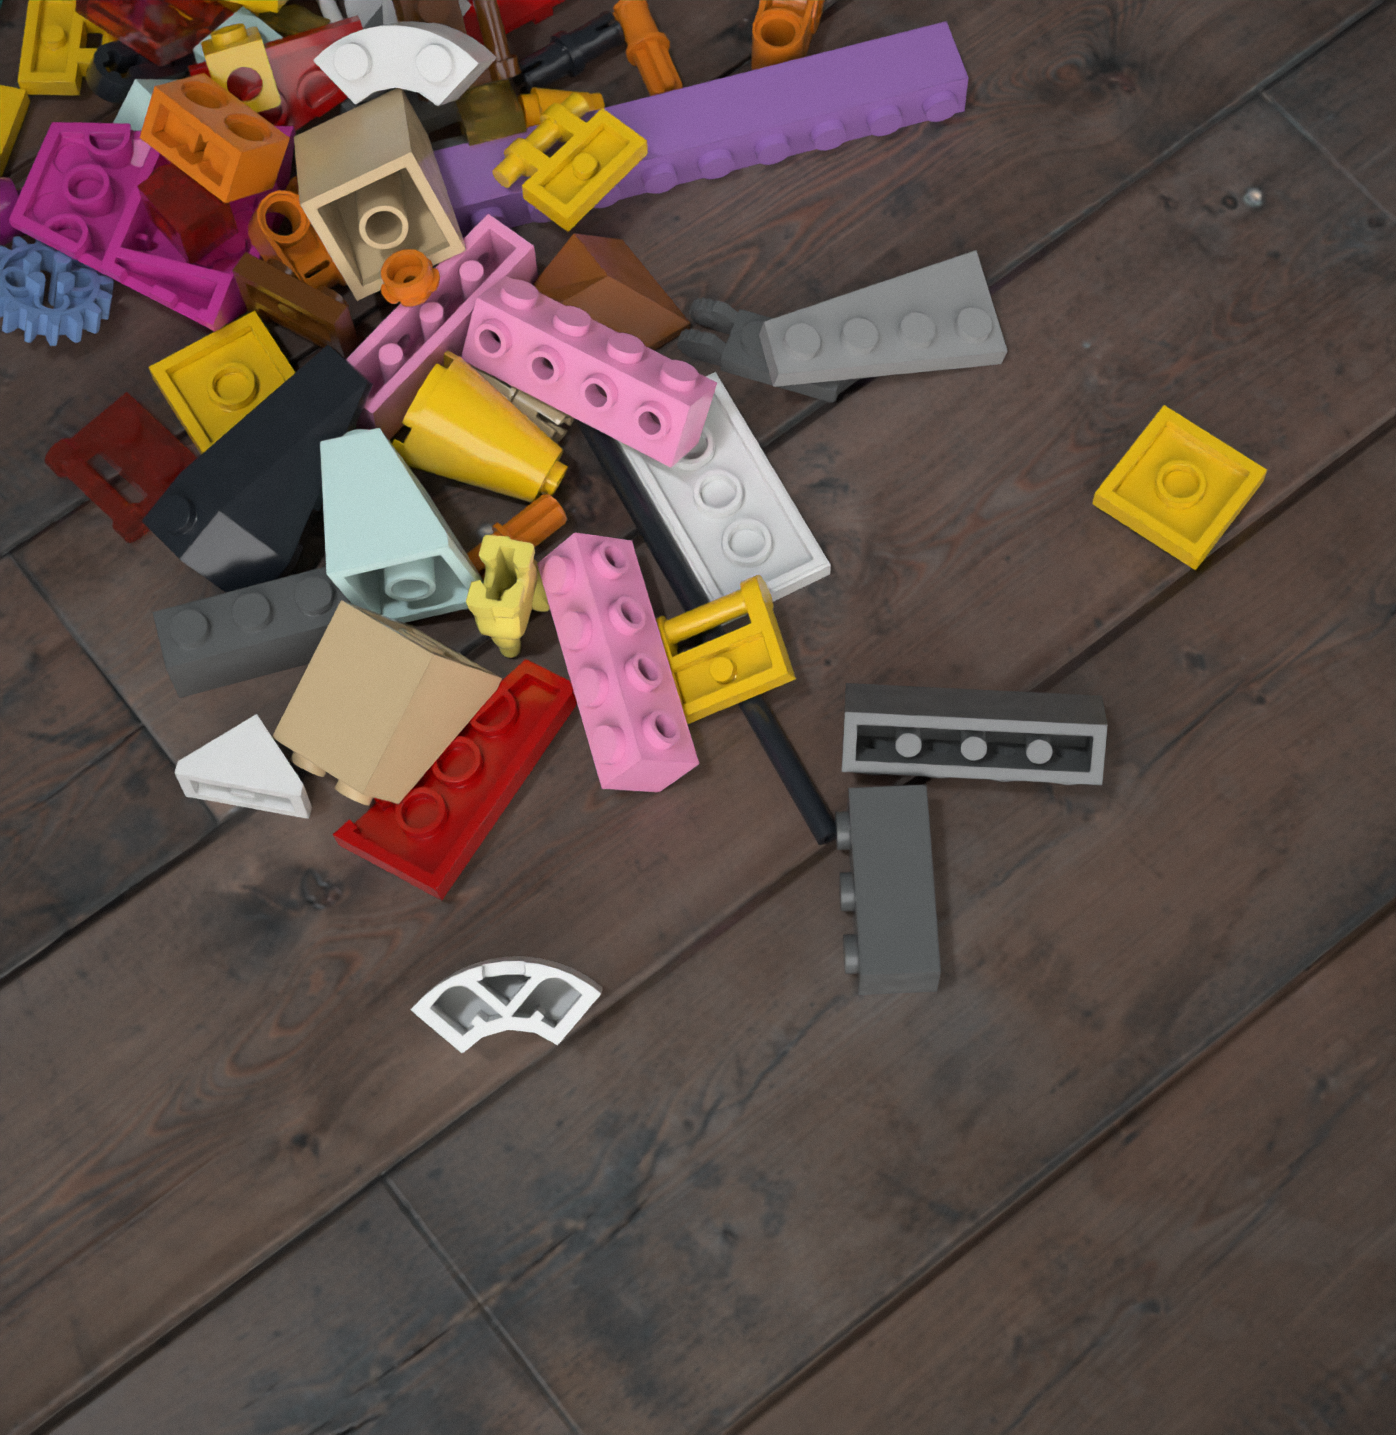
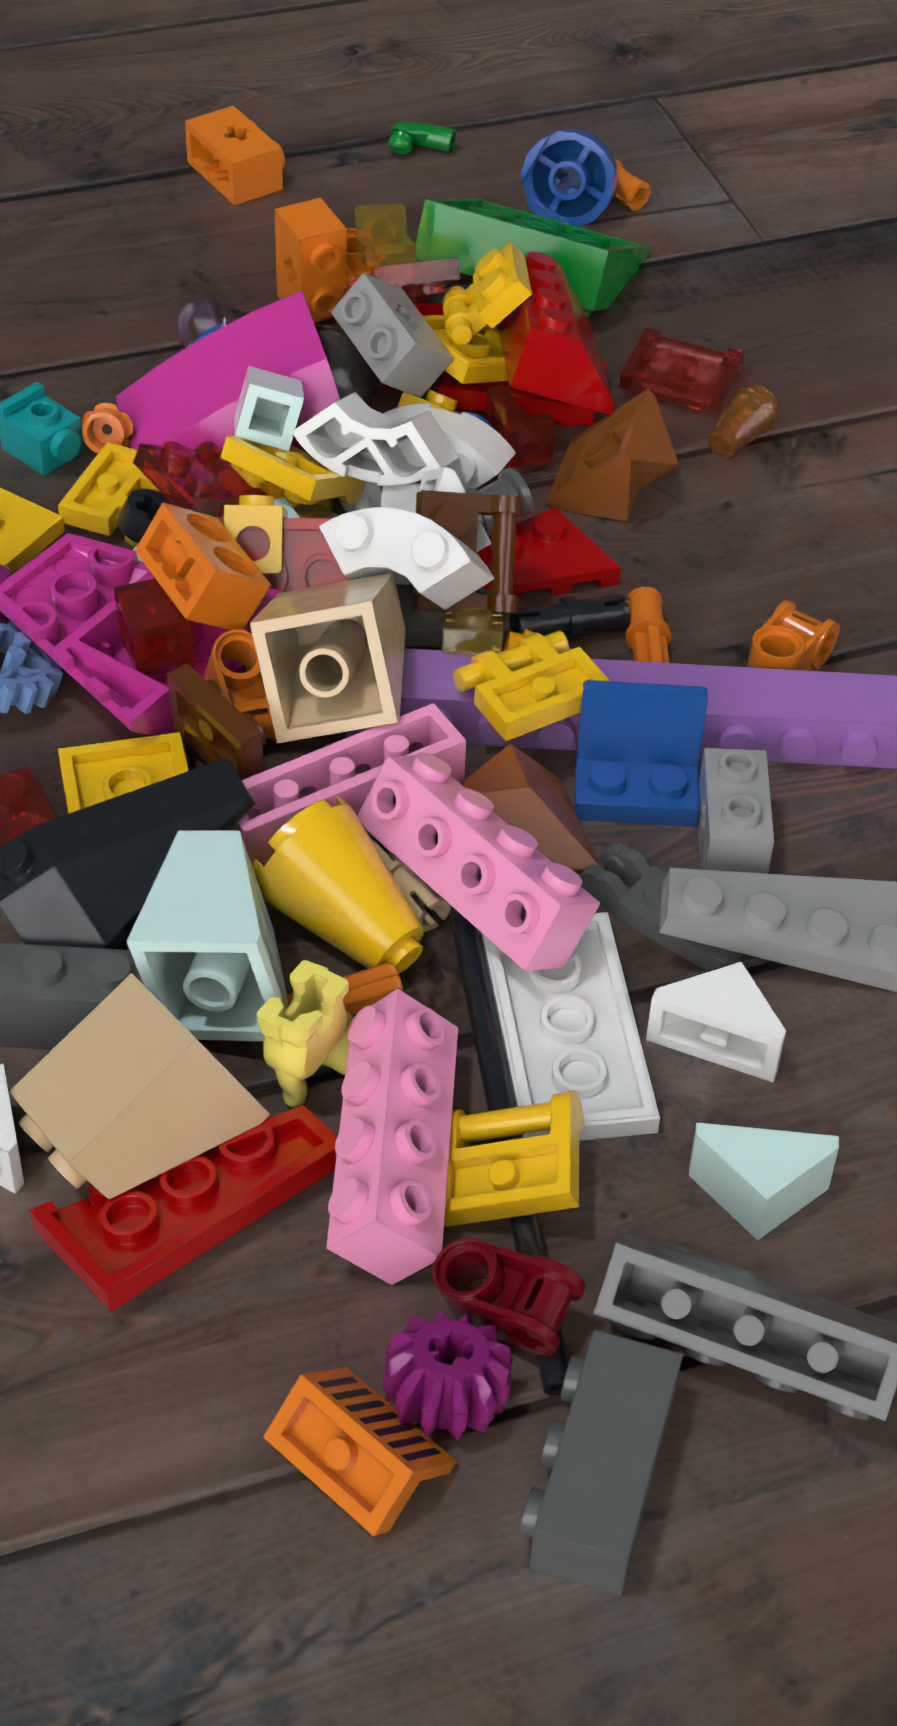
camera: 15 degrees right, 20 degrees down
(408, 278) = (331, 726): orange plate -> none
(507, 995) = (127, 1421): white brick -> none
(689, 945) = (355, 1446): none -> orange panel
(690, 200) = (639, 753): none -> blue bracket
(740, 862) = (447, 1374): none -> magenta gear
(777, 778) = (519, 1295): none -> dark red piece
(797, 237) = (735, 811): none -> light grey brick
(852, 453) = (719, 1020): none -> white slope
(931, 590) = (761, 1172): none -> light aqua slope

